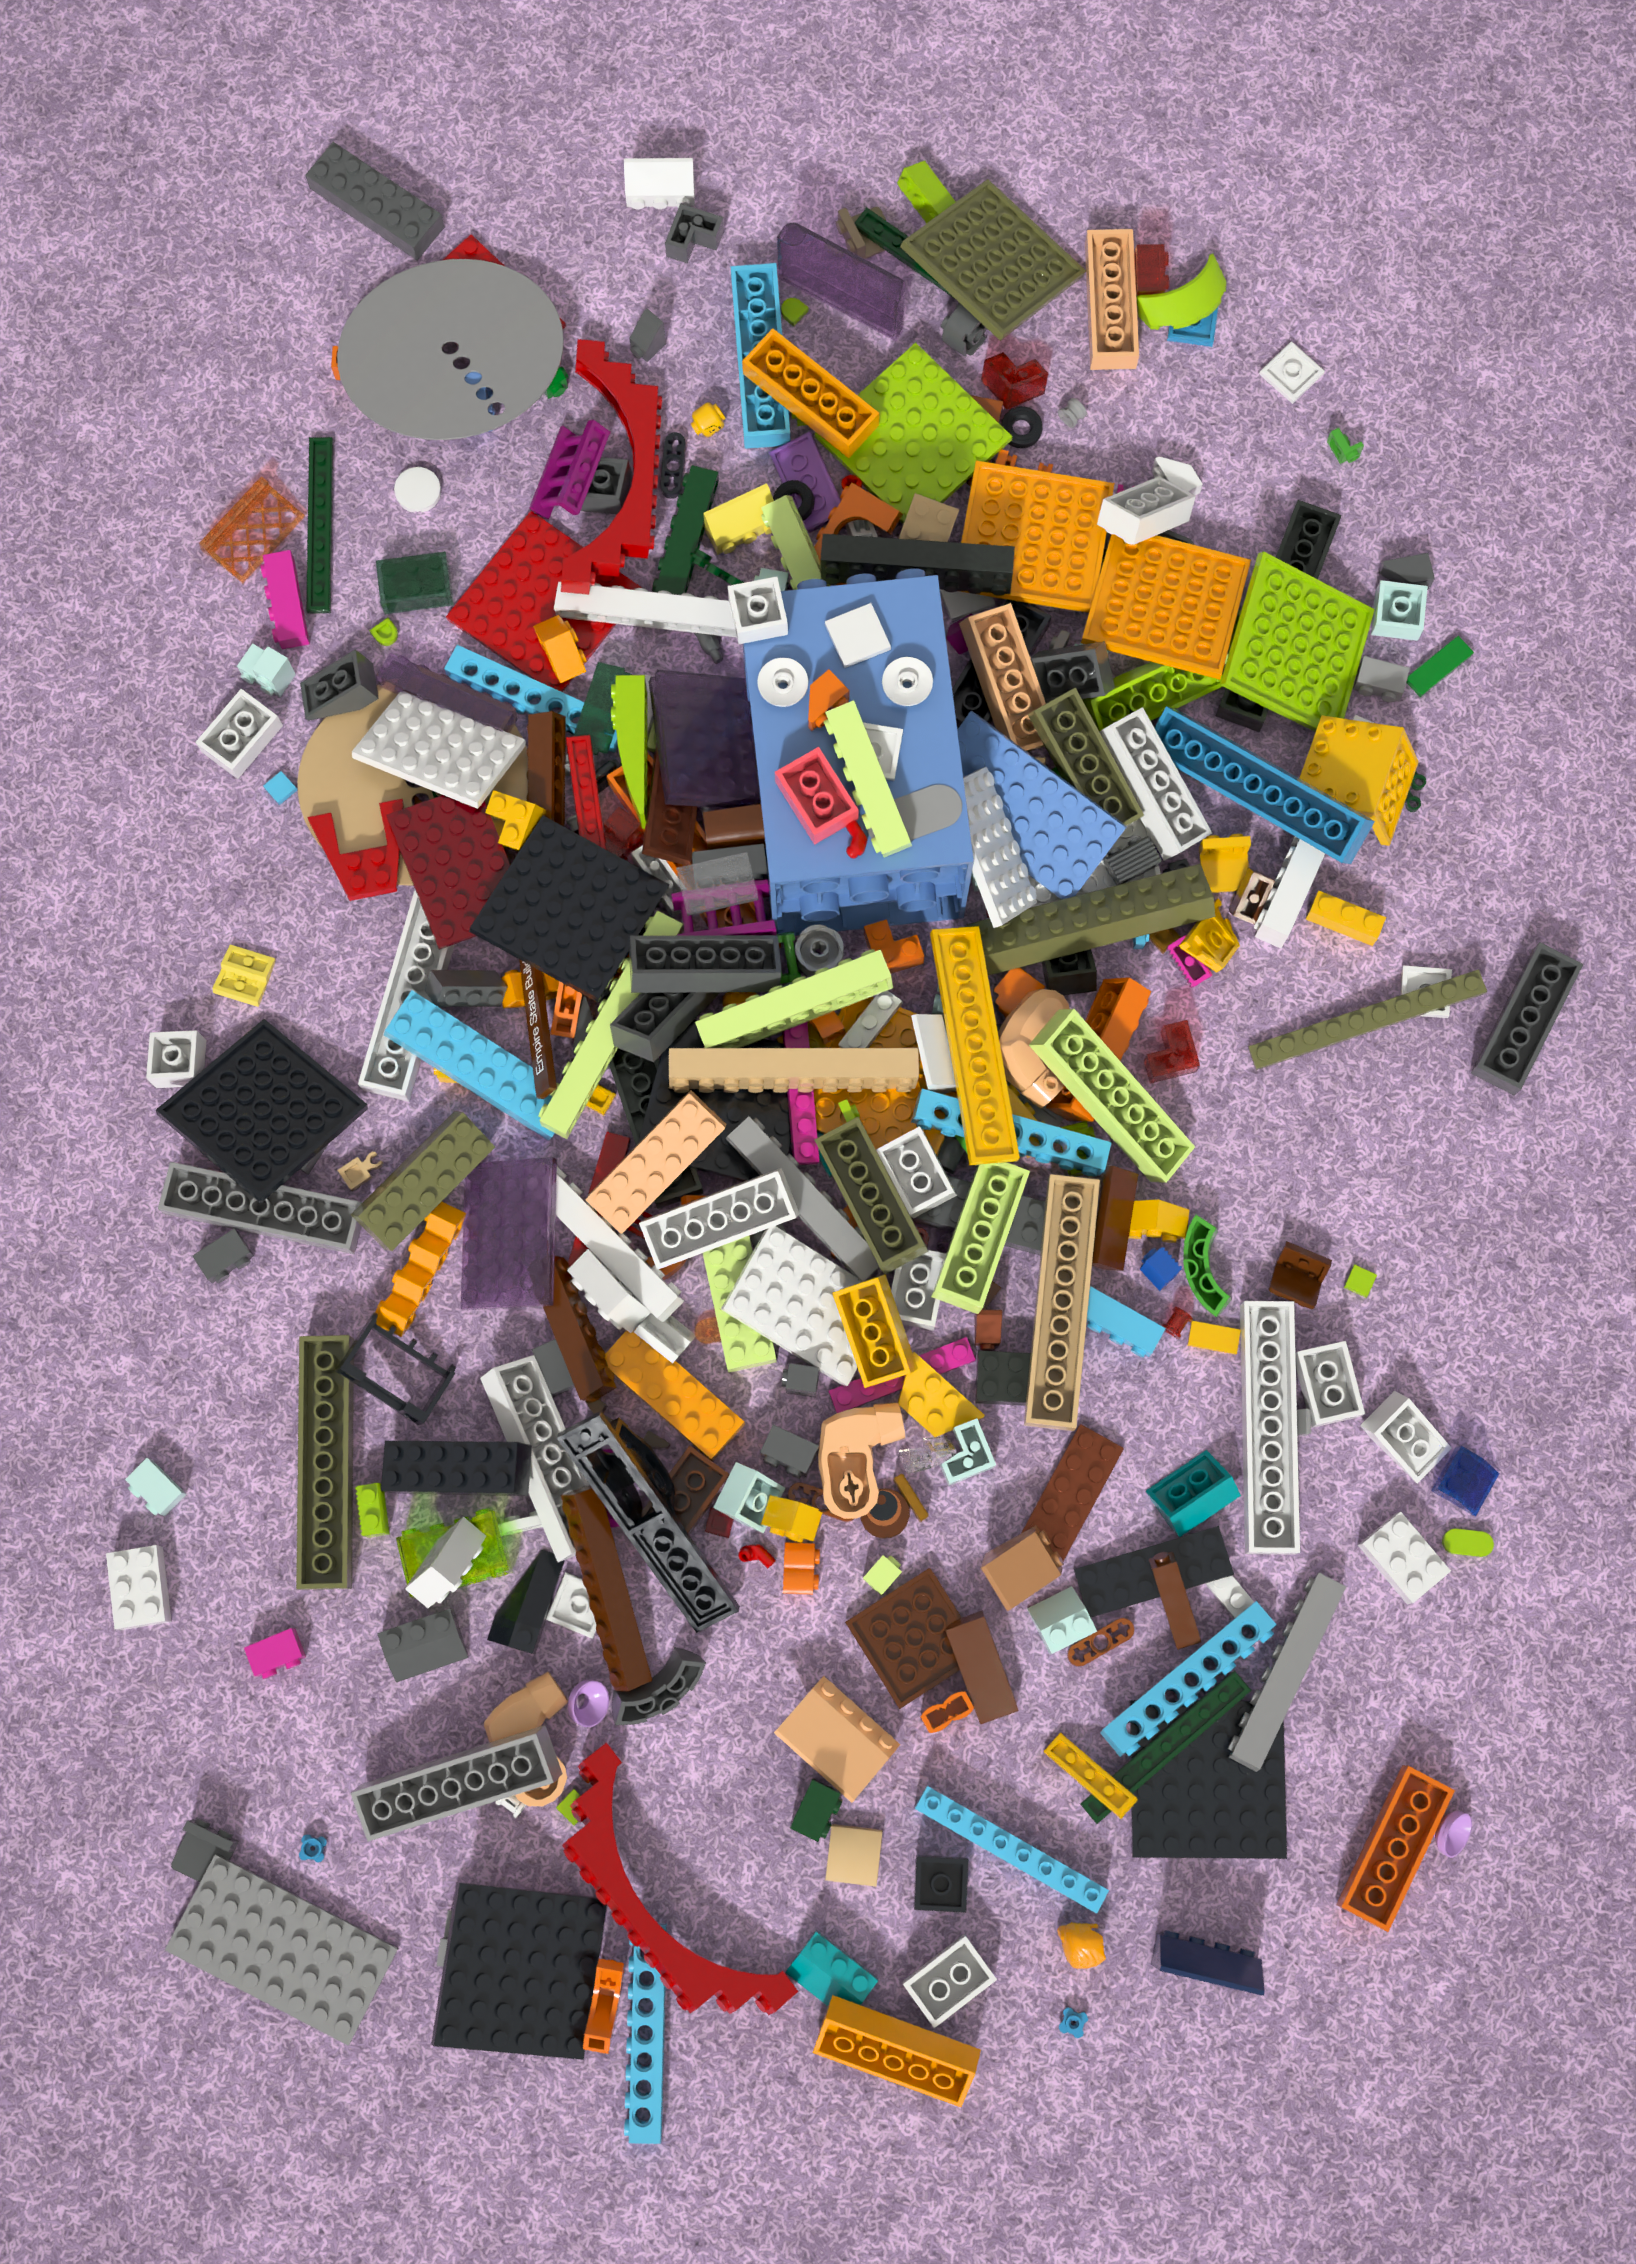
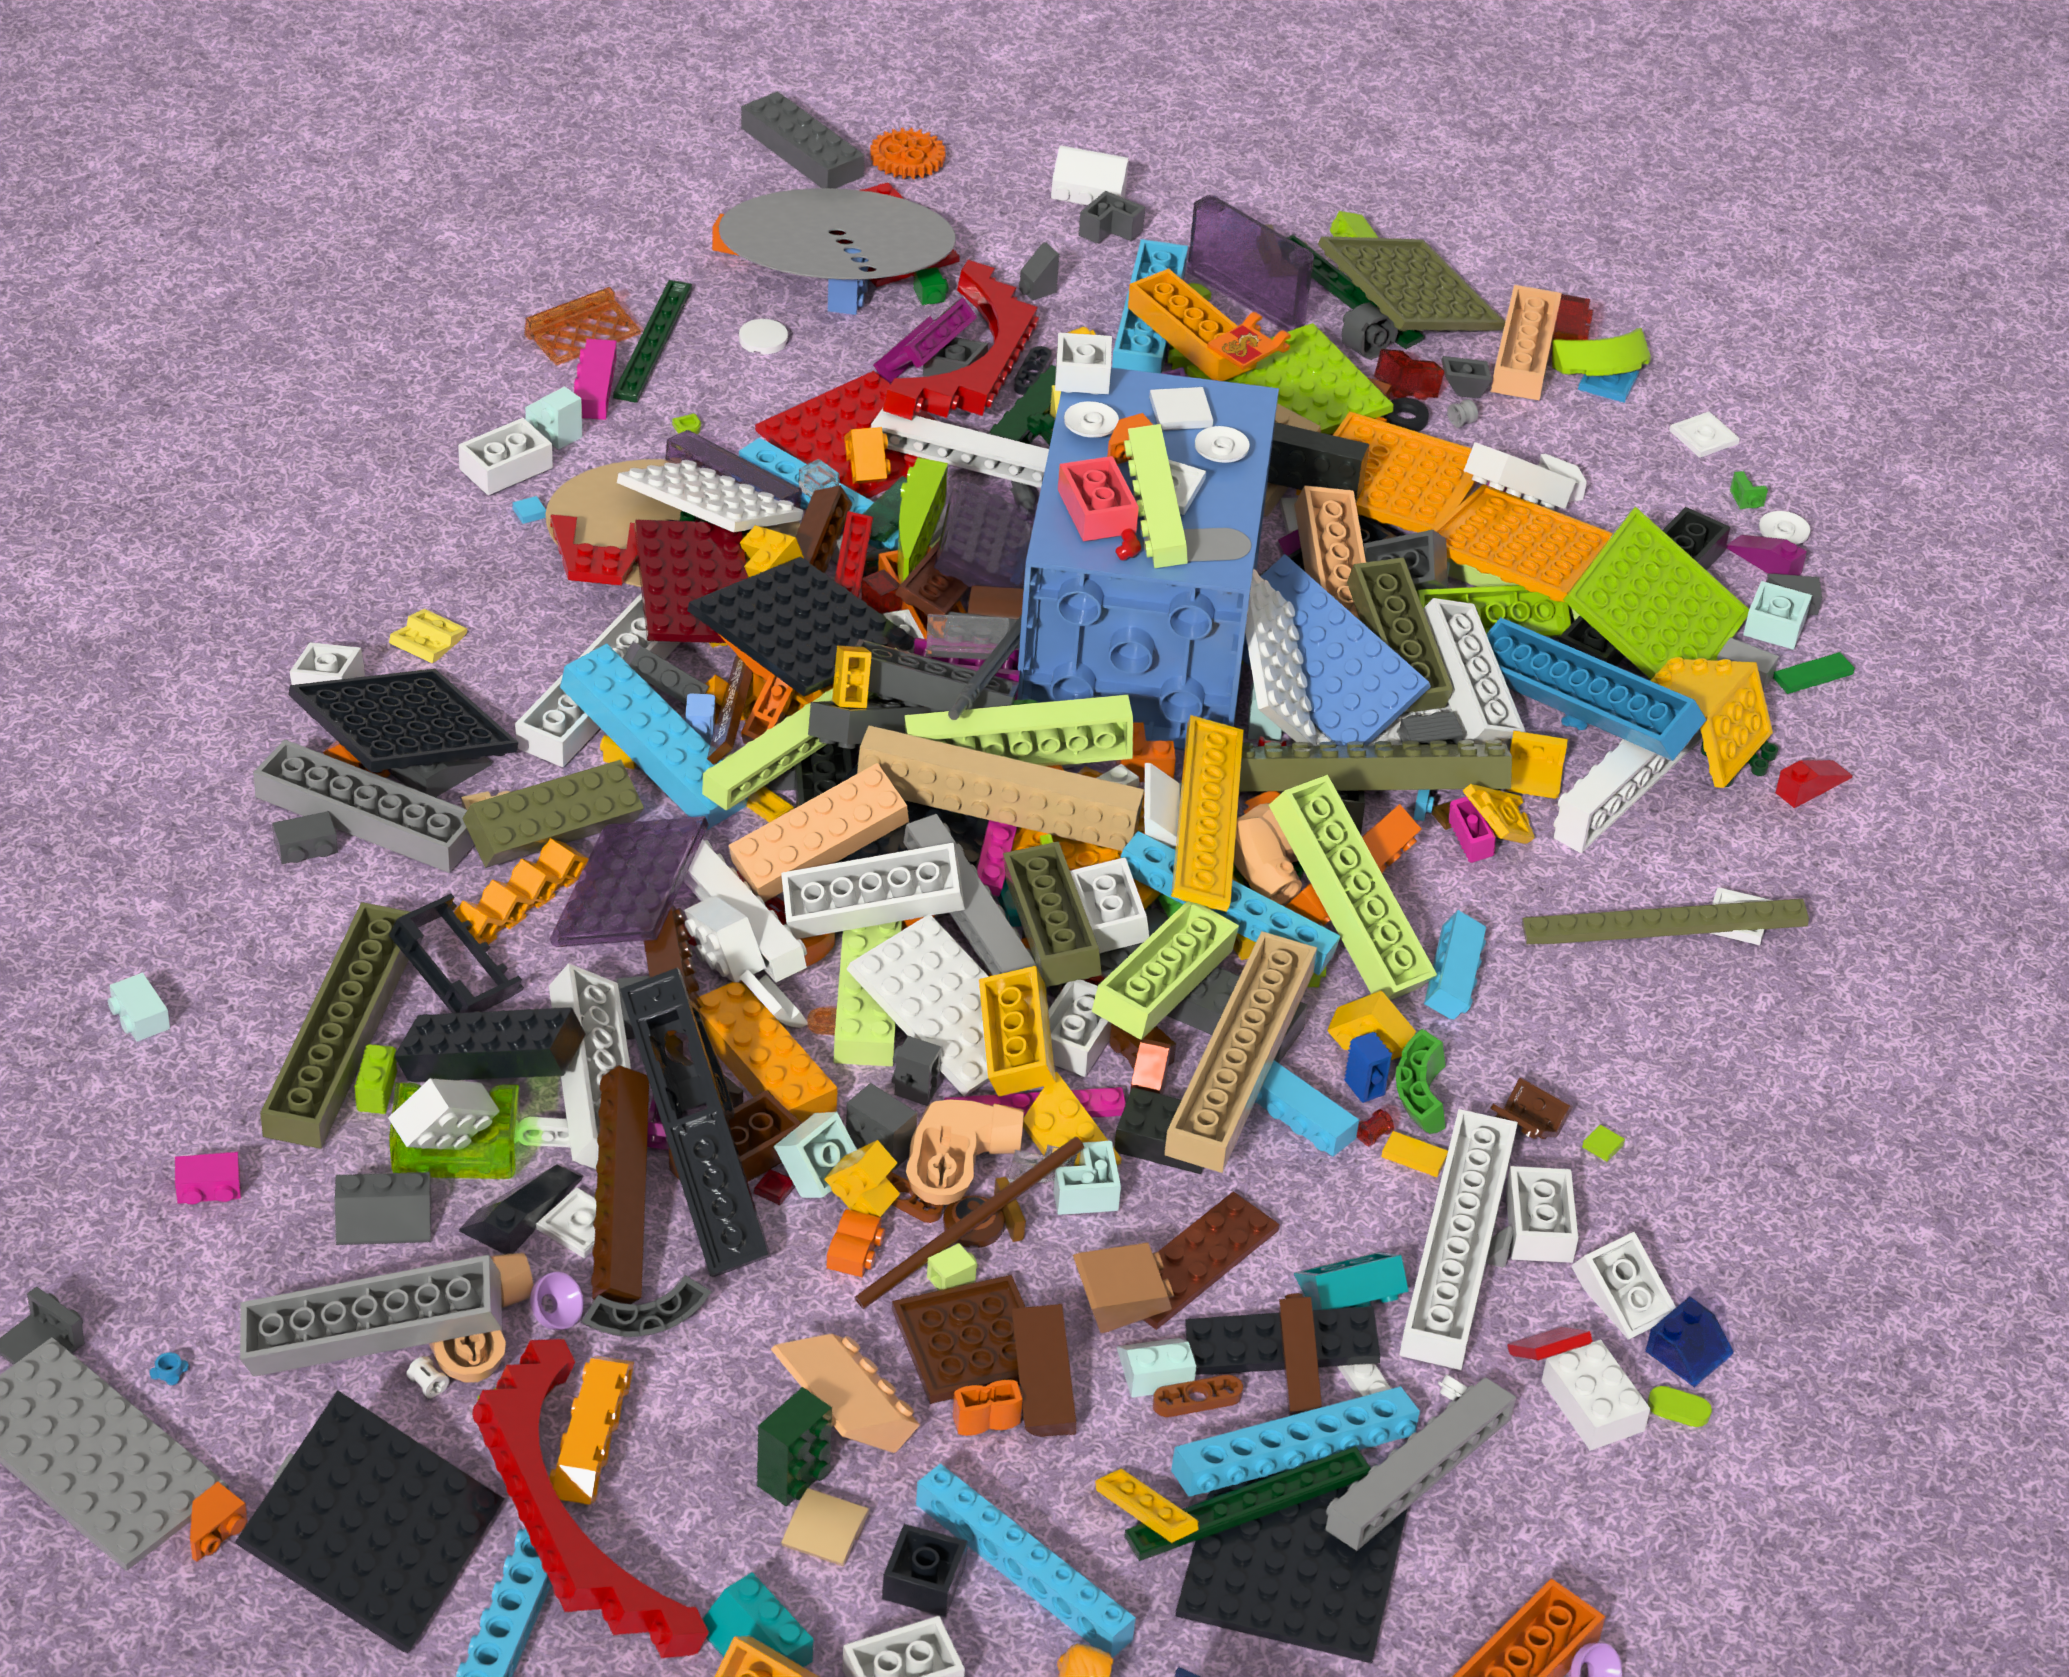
camera: 10 degrees right, 35 degrees down
(138, 1587) = (78, 1085): white brick -> none
(340, 687) = (627, 446): dark grey slope -> none
(397, 1986) = (215, 1518): none -> orange slope
(414, 582) = (733, 392): clear green brick -> none
(481, 167) = (907, 153): none -> orange gear
(512, 1032) = (701, 714): none -> light blue brick
(527, 696) = (817, 476): none -> clear brick
(604, 2006) = (452, 1608): orange arch -> none
(640, 999) = (851, 676): none -> yellow brick
(653, 1820) = (590, 1431): none -> light orange brick
(754, 941) = (987, 670): none -> dark grey axle
(756, 1552) = (807, 1221): red arm -> none
(868, 419) = (1246, 343): none -> orange flag
(887, 1535) = (969, 1222): none -> reddish brown piece
(1068, 368) = (1467, 376): none -> dark grey slope
(1114, 1218) = (1323, 1009): reddish brown brick -> none
(1177, 1058) = (1433, 902): clear red brick -> none
(1206, 1123) = (1456, 965): none -> medium azure brick
(1251, 896) = (1559, 781): reddish brown brick -> none
(1293, 1579) = (1452, 1388): none -> white plate
(1345, 918) = (1660, 836): yellow brick -> none
(1360, 1519) = (1550, 1343): none -> red tile
(1376, 525) = (1770, 554): none -> magenta slope
(1387, 477) = (1784, 526): none -> white dish
(1460, 806) = (1809, 779): none -> red slope
(1527, 1019) = (1850, 956): dark grey brick -> none

